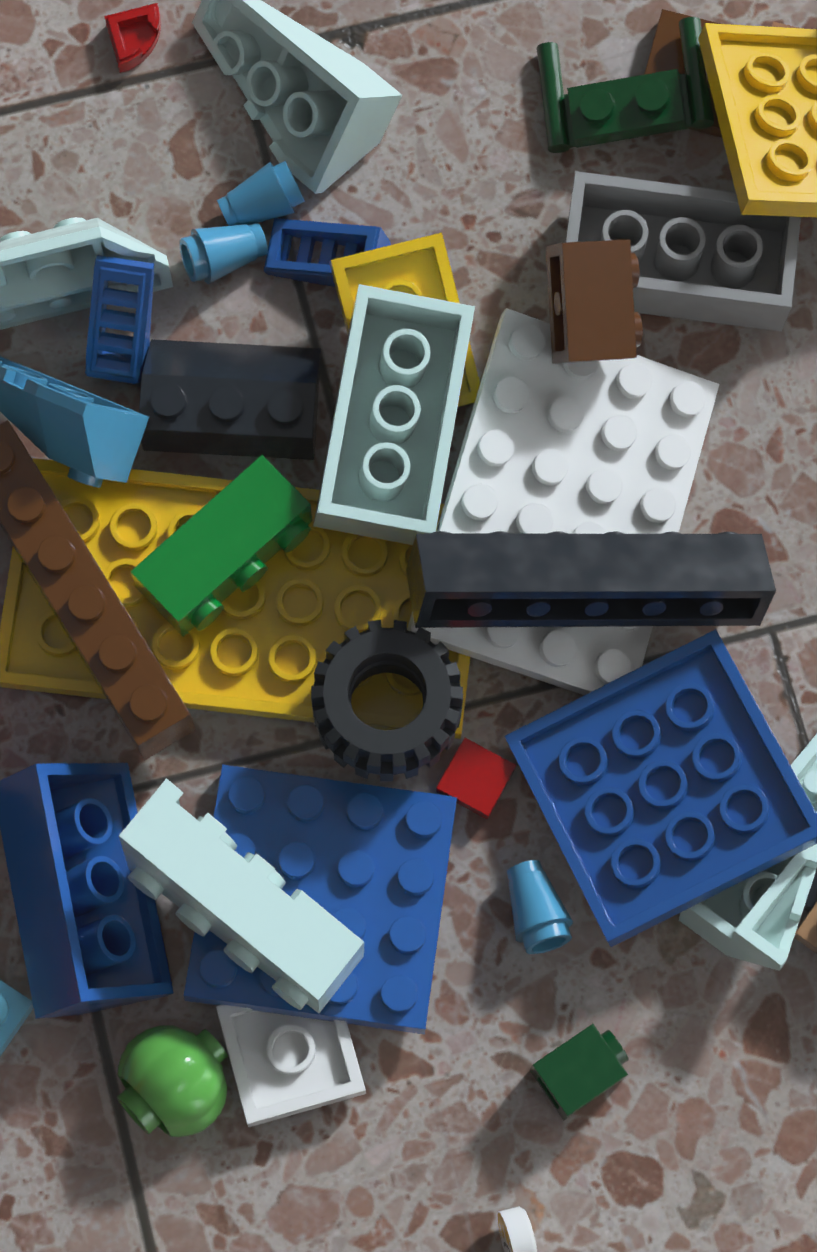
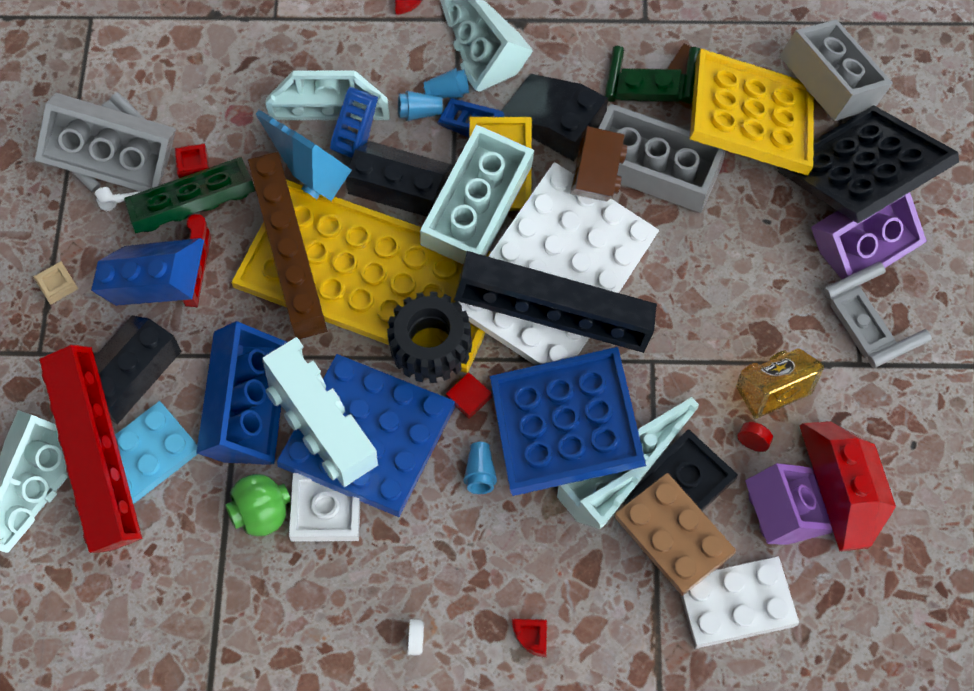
camera: 20 degrees right, 10 degrees down
(224, 547) = (369, 242): green brick -> none
(480, 194) = (558, 111): none -> black slope
(581, 1070) = (477, 557): dark green brick -> none
(708, 1177) = (531, 635): none -> red tile

